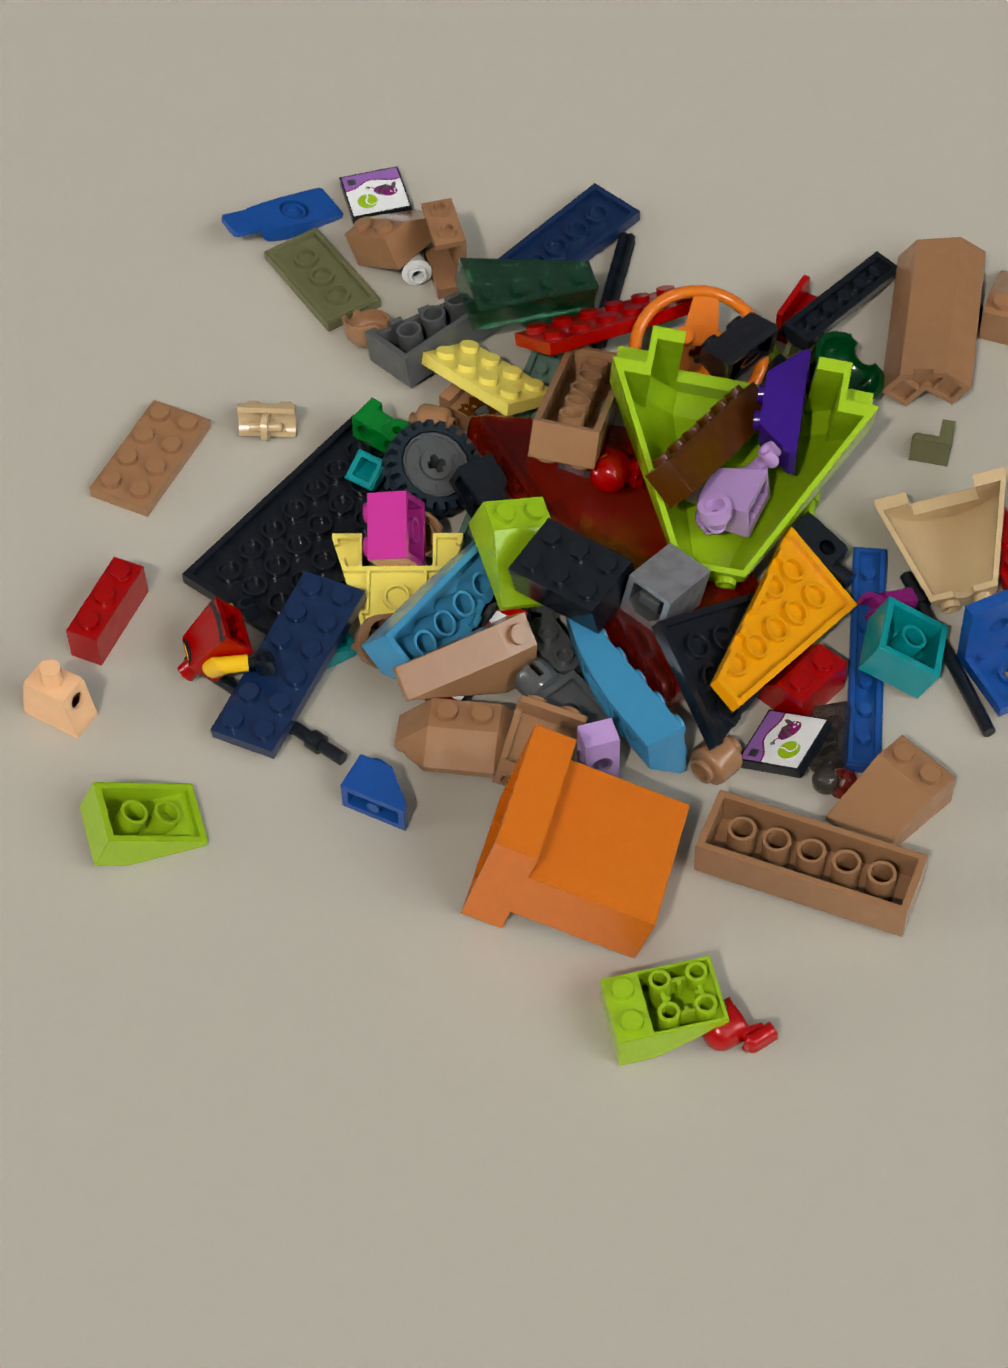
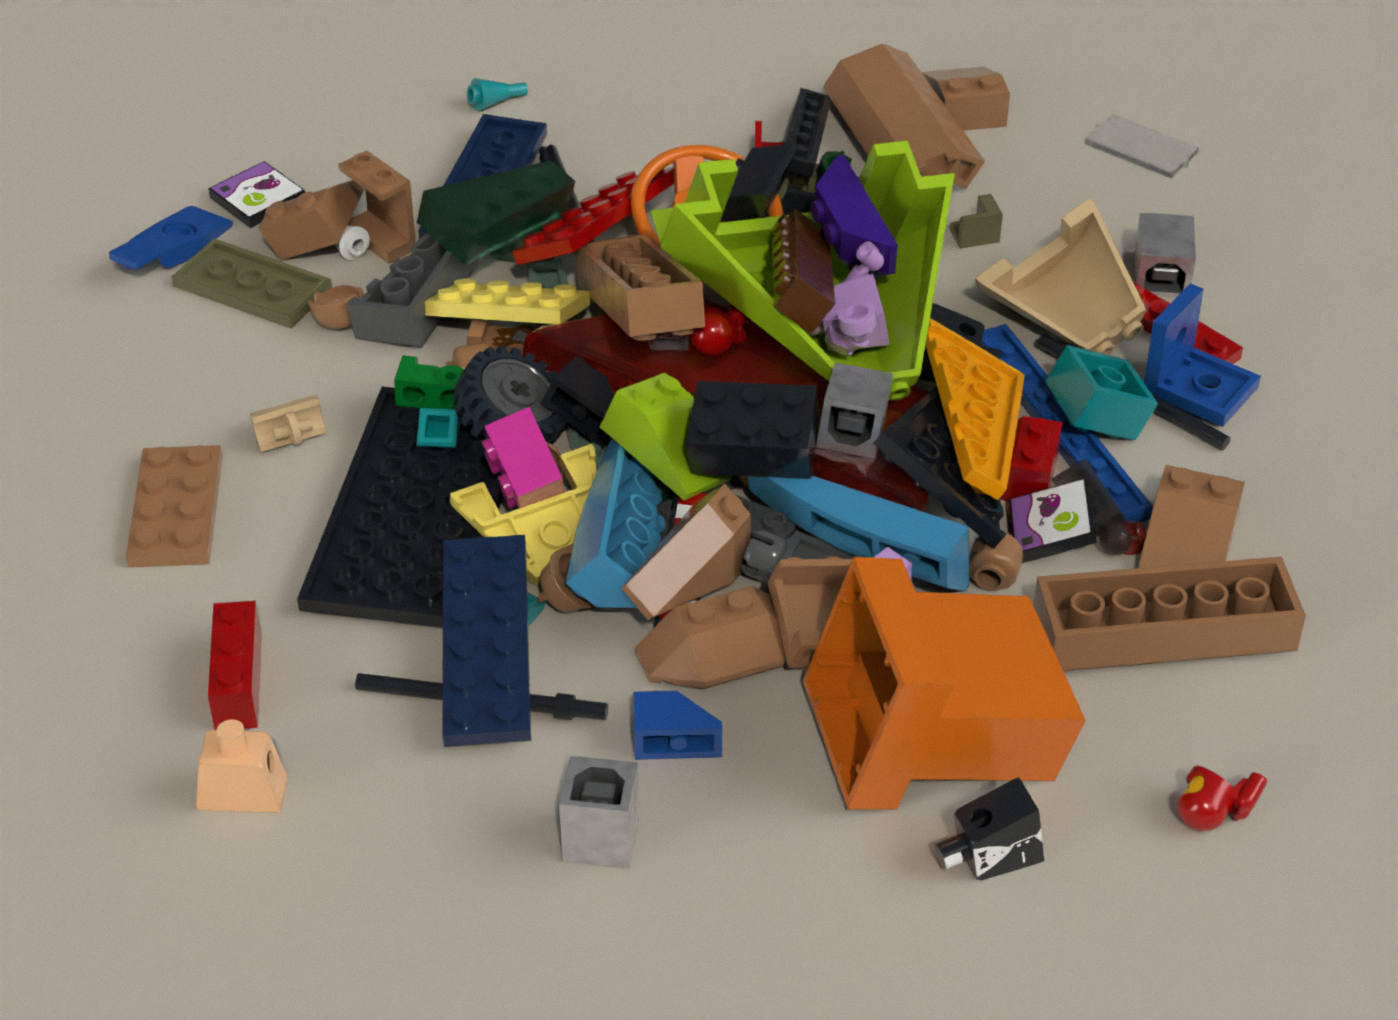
camera: 30 degrees left, 10 degrees down
(140, 821) = (422, 863): lime slope -> none
(220, 643) = (402, 644): torso -> none
(274, 838) = (599, 811): none -> flat silver piece
(543, 981) = (995, 833): none -> black torso
(616, 162) = (486, 93): none -> teal cone
(661, 1008) = (1132, 810): lime slope -> none
(874, 600) = (1044, 363): magenta bar -> none

